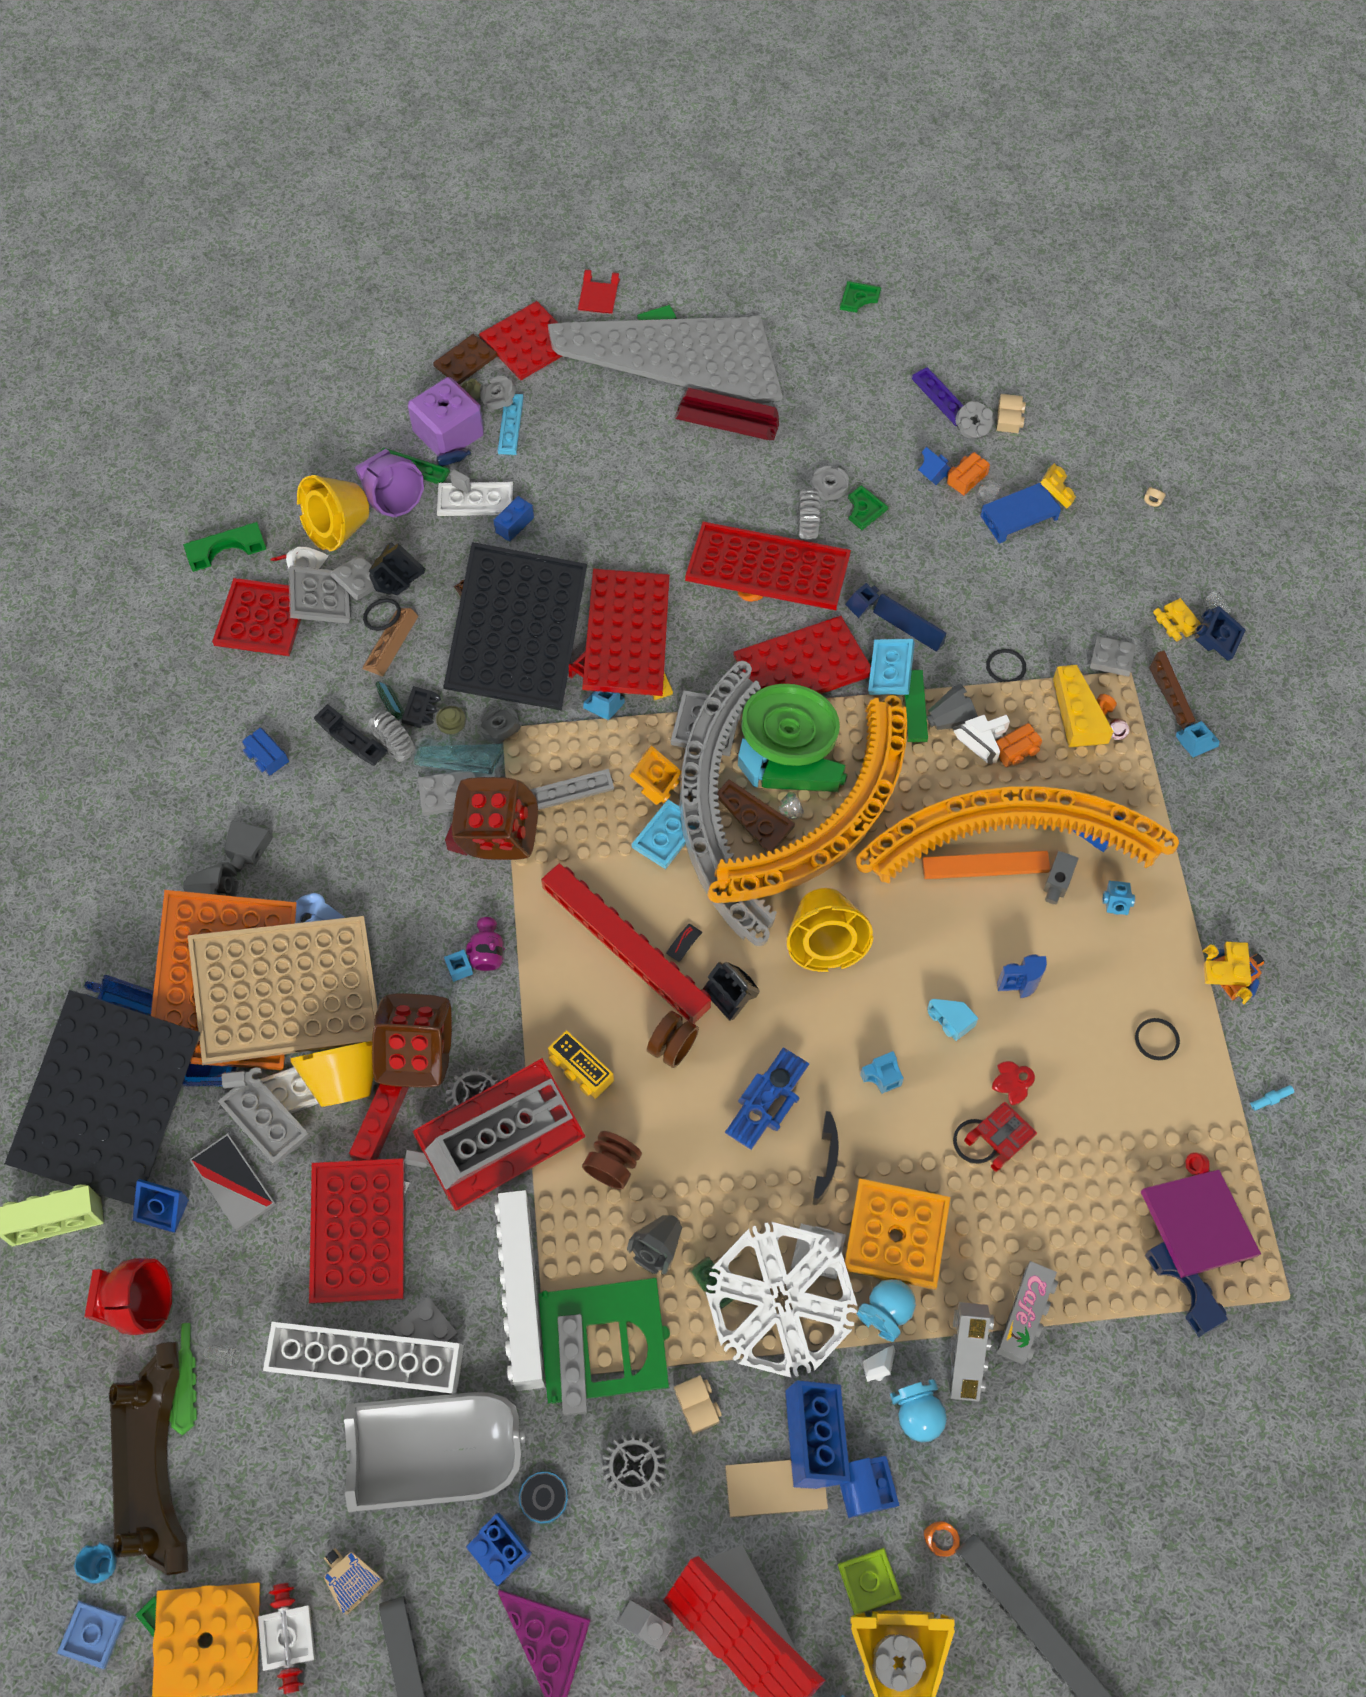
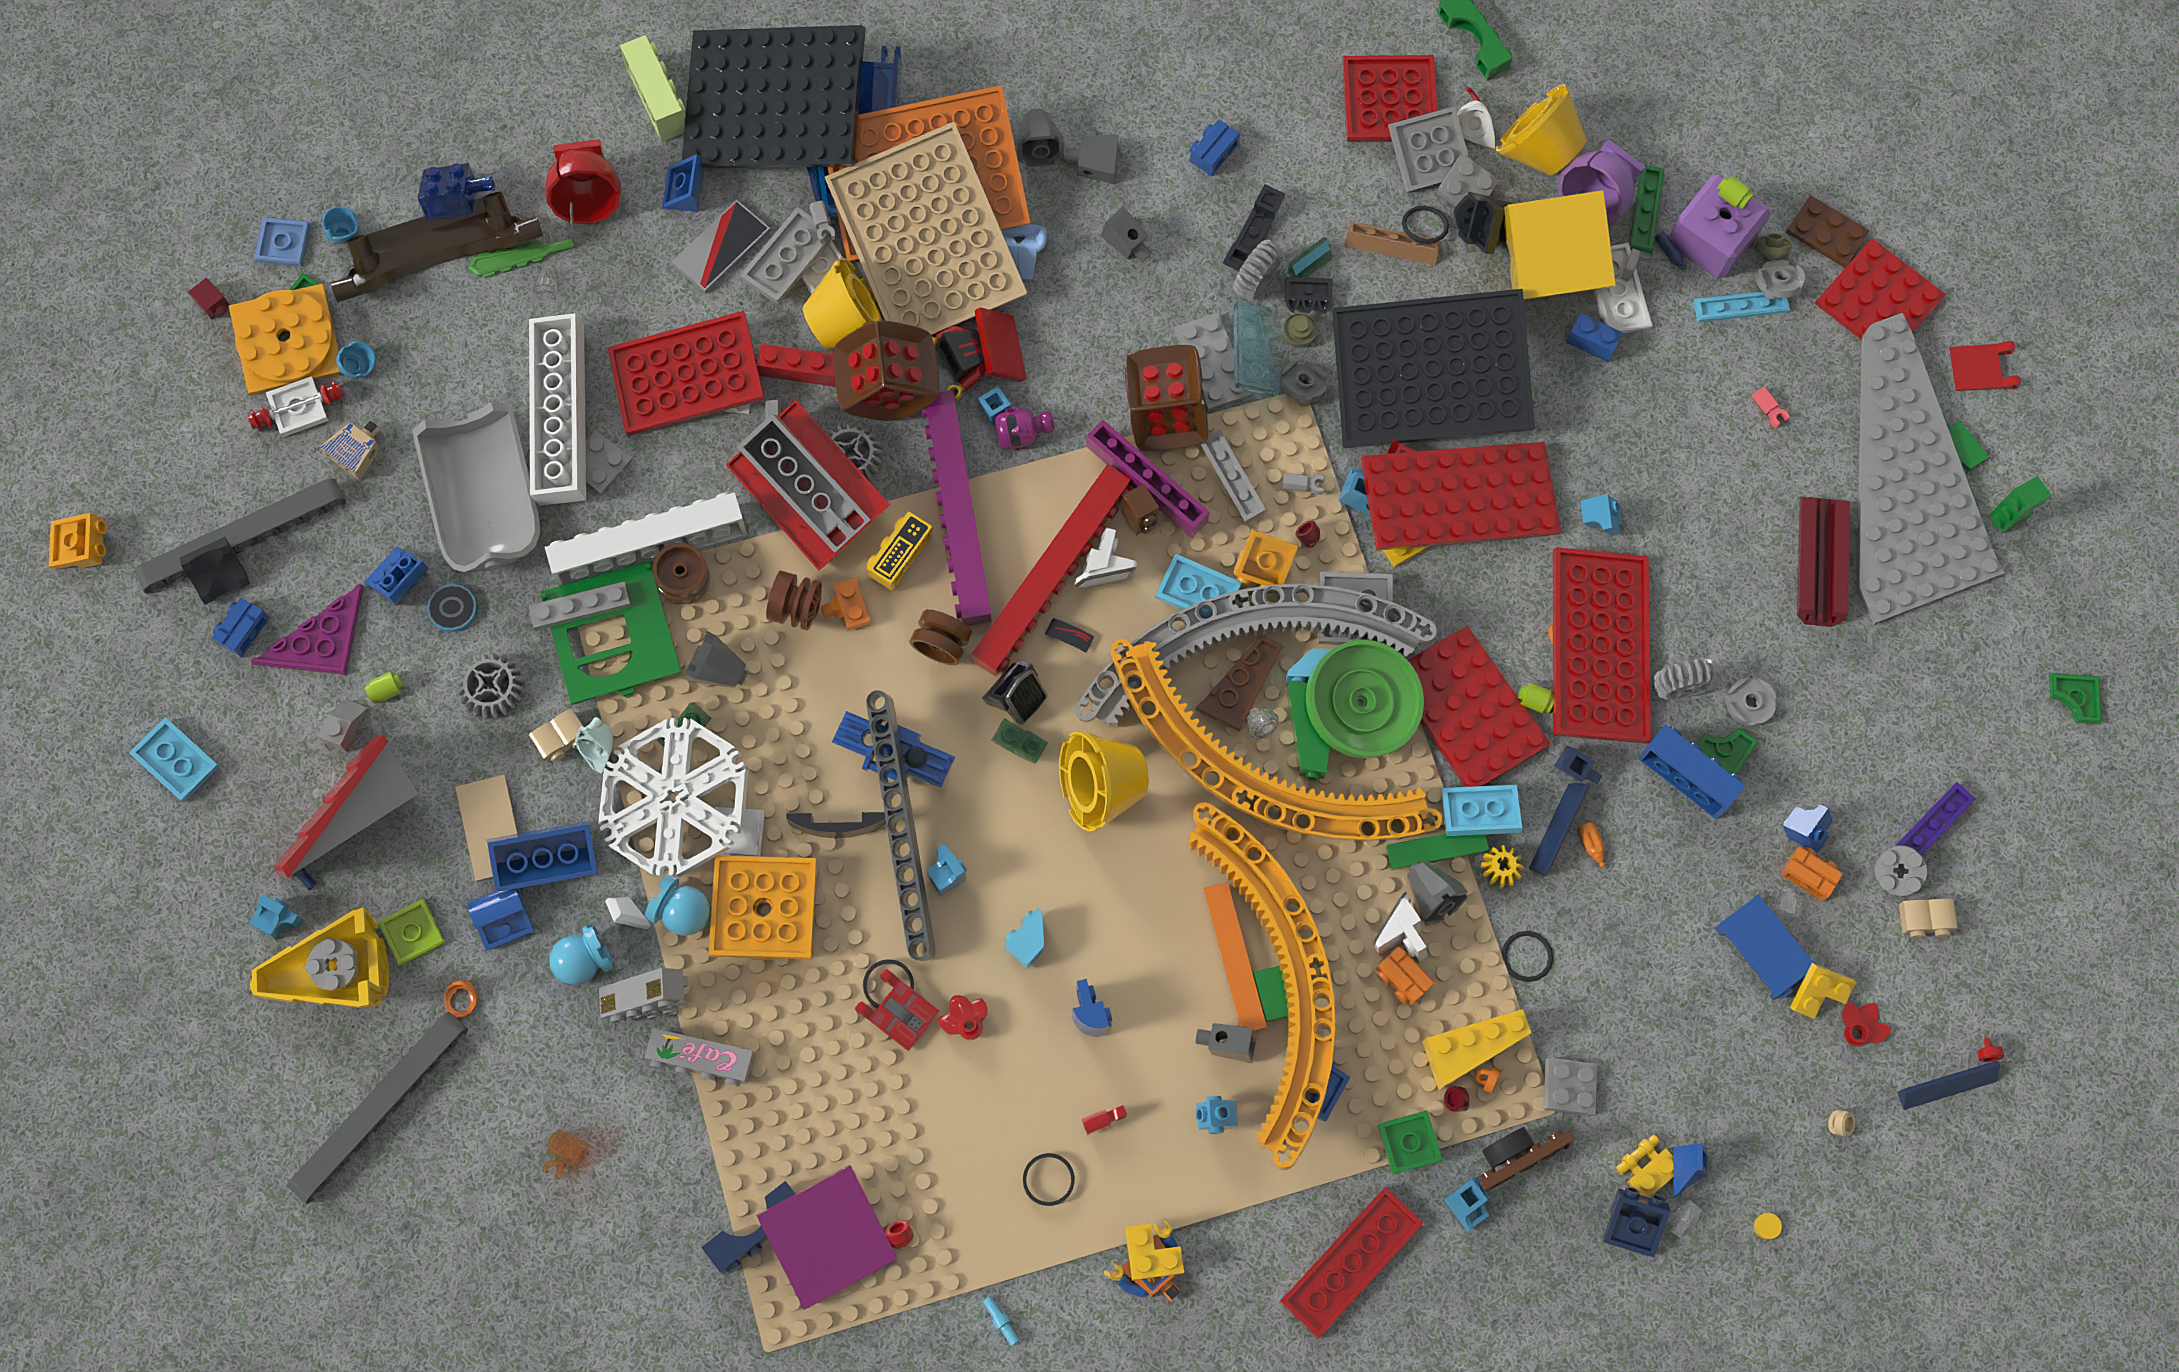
camera: 75 degrees right, 10 degrees up
(96, 1435) = (450, 190): none -> clear blue brick
(253, 1563) = (356, 360): none -> dark azure hair
(328, 832) = (1126, 235): none -> dark grey torso
(403, 950) = (1000, 344): none -> red tile
(406, 977) = (962, 356): none -> black torso
(431, 388) = (1735, 192): none -> lime brick
(438, 515) = (1559, 245): none -> yellow tile
(554, 1010) = (957, 509): none -> magenta brick
(562, 850) = (1169, 496): none -> magenta brick
(567, 1273) = (681, 573): none -> reddish brown wheel
(588, 741) = (1302, 483): none -> light grey bar
(590, 860) = (1140, 510): none -> reddish brown brick
(598, 423) = (1770, 406): none -> coral bar
(614, 1577) = (384, 687): none -> lime brick
(620, 1117) = (847, 605): none -> orange hinge
(629, 897) = (1103, 566): none -> white piece
(634, 744) = (1308, 533): none -> dark red tile
(662, 541) = (1602, 512): none -> dark azure brick
(715, 1367) = (595, 744): none -> light aqua hat
(718, 292) = (2020, 504): none -> green arch
(774, 997) = (1019, 742): none -> clear green slope
(802, 616) = (1536, 698): none -> lime brick
(852, 1099) = (908, 835): none -> dark grey beam
(882, 526) = (1692, 771): none -> blue brick
(923, 604) = (1592, 842): none -> orange piece
(935, 665) = (1493, 863): none -> yellow gear
(1018, 840) = (1271, 993): none -> green tile
(1081, 469) = (1864, 1021): none -> red plate
(1100, 1452) = (566, 1150): none -> clear orange brick
(1112, 400) = (1990, 1053): none -> red tile
(1112, 986) = (1103, 1119): none -> red bar
(1131, 429) = (1949, 1085): none -> dark blue slope
(1149, 768) = (1409, 1142): none -> green plate
(1160, 702) = (1507, 1147): none -> black tyre
(1182, 589) = (1688, 1166): none -> blue slope
(1225, 556) = (1767, 1226): none -> yellow tile
(1239, 829) = (1351, 1262): none -> red plate

